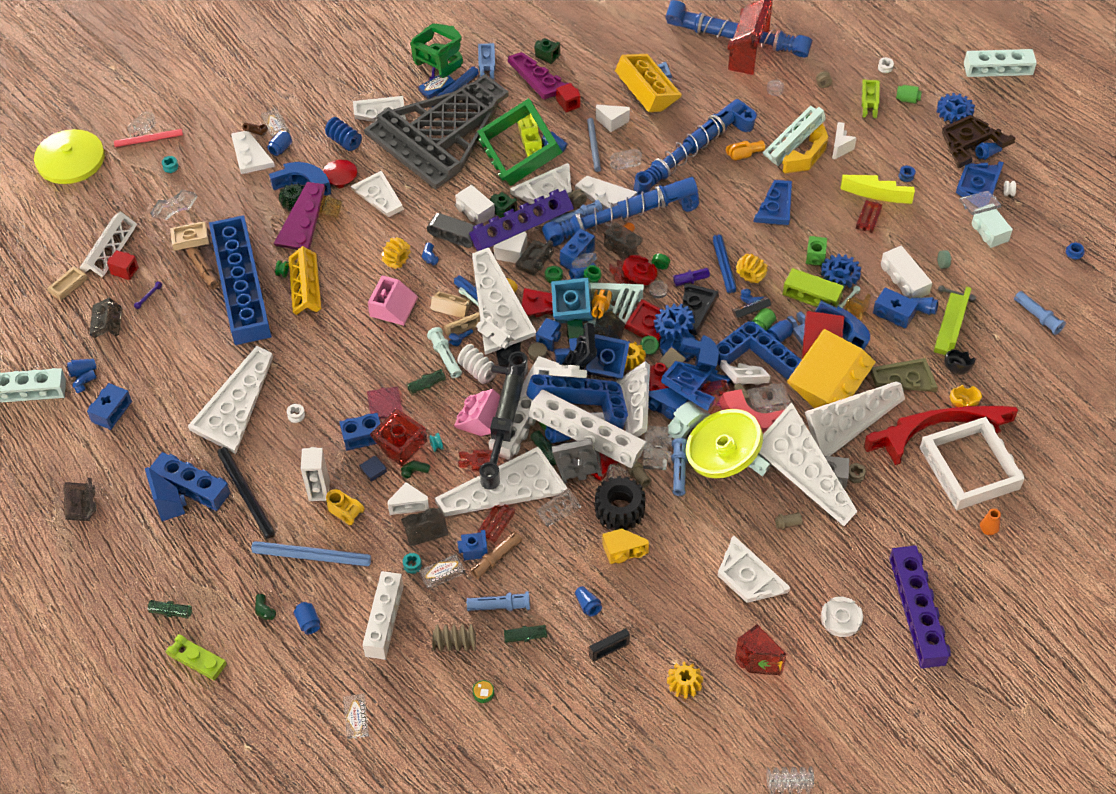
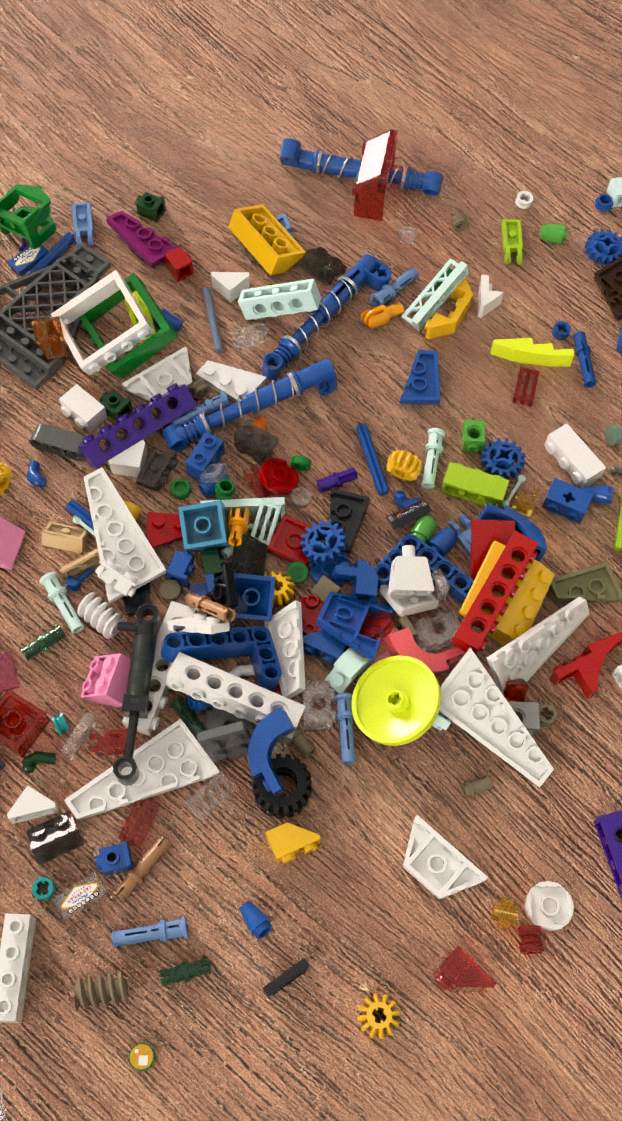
camera: 10 degrees left, 10 degrees up
(451, 452) = (79, 736): none -> clear tile
(452, 144) = (50, 337): none -> clear orange slope
(487, 118) = (88, 300): none -> white window
(567, 357) = (205, 605): none -> medium nougat pin
(607, 459) = (261, 744): none -> blue arch
(661, 124) = (279, 299): none -> light aqua brick
(695, 106) = (322, 265): none -> clear smoke bracket
(747, 351) = (410, 575): none -> white torso
(753, 131) = (389, 291): none -> medium blue pin
(771, 363) = (441, 587): none -> clear tile
(779, 260) = (433, 450): none -> light aqua pin
(802, 615) = (505, 913): none -> clear yellow gear
(819, 366) = (519, 547): none -> red brick
(822, 637) = (530, 945): none -> clear red wheel
(830, 447) = (515, 690): none -> clear red slope
(923, 184) = (583, 353): none -> blue pin
(959, 72) = (604, 202): none -> blue plate

